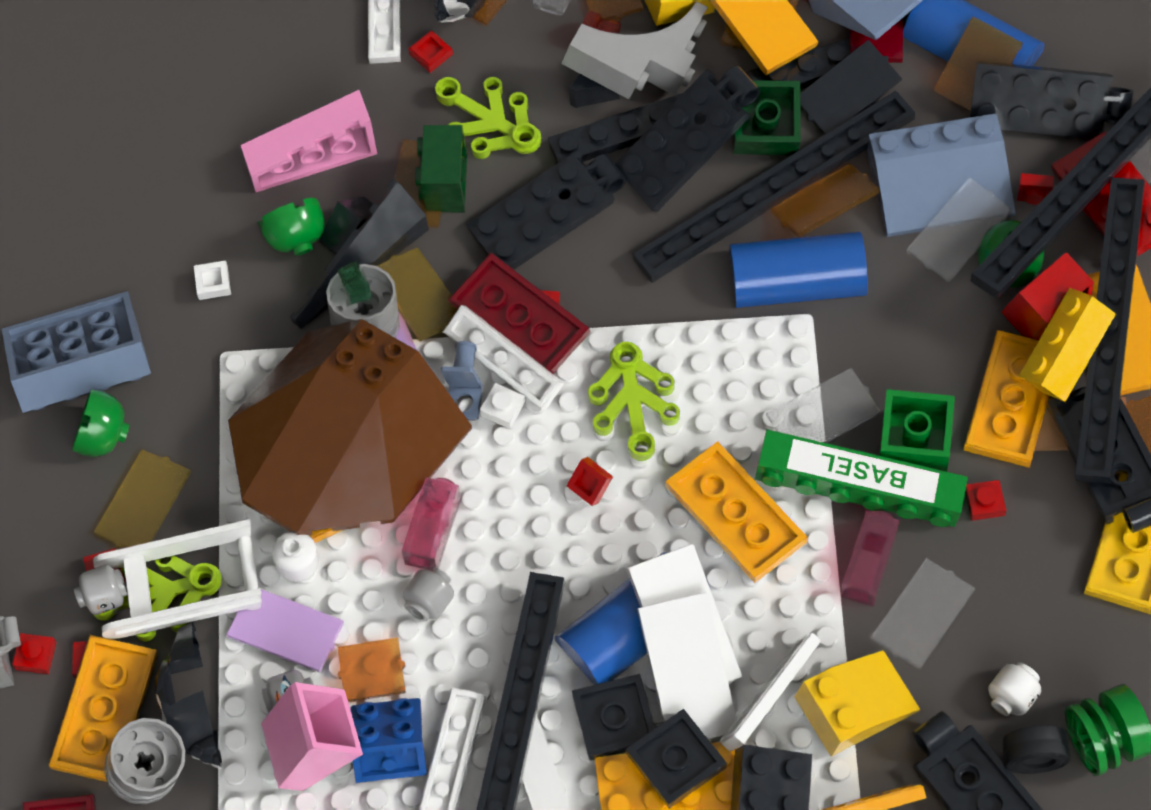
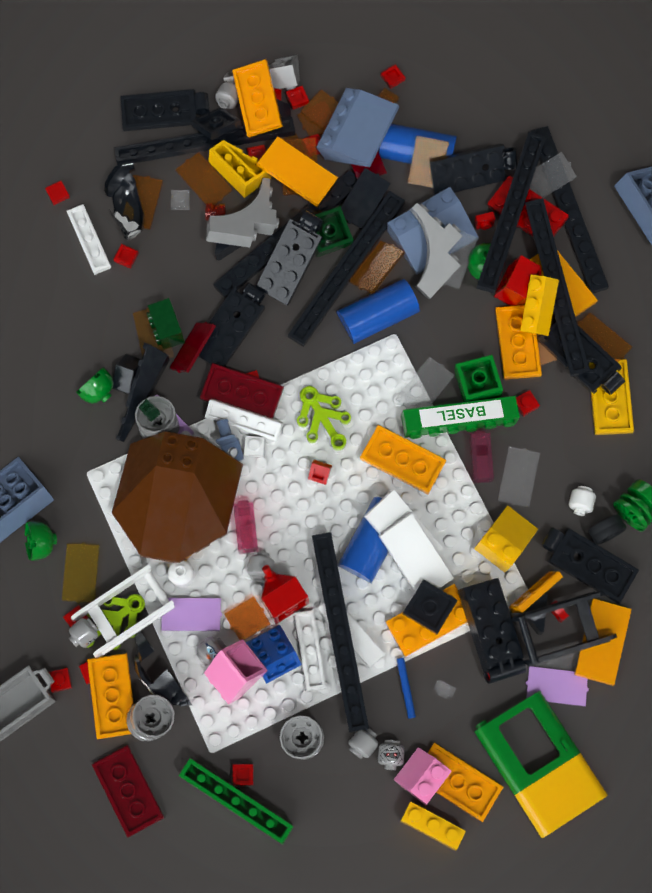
camera: 25 degrees left, 10 degrees up
(212, 280) = (63, 433): white plate -> none
(311, 143) = (84, 335): bright pink wedge -> none
(420, 294) = (183, 398): clear yellow piece -> none
(440, 649) = (282, 595): none -> red piece
(471, 219) = (192, 347): none -> dark red piece
(491, 119) = (176, 284): lime plant -> none
(613, 715) = (386, 595): black plate -> none
(770, 692) = (462, 552): white tile -> none
(943, 190) = (439, 241): none -> light grey arch

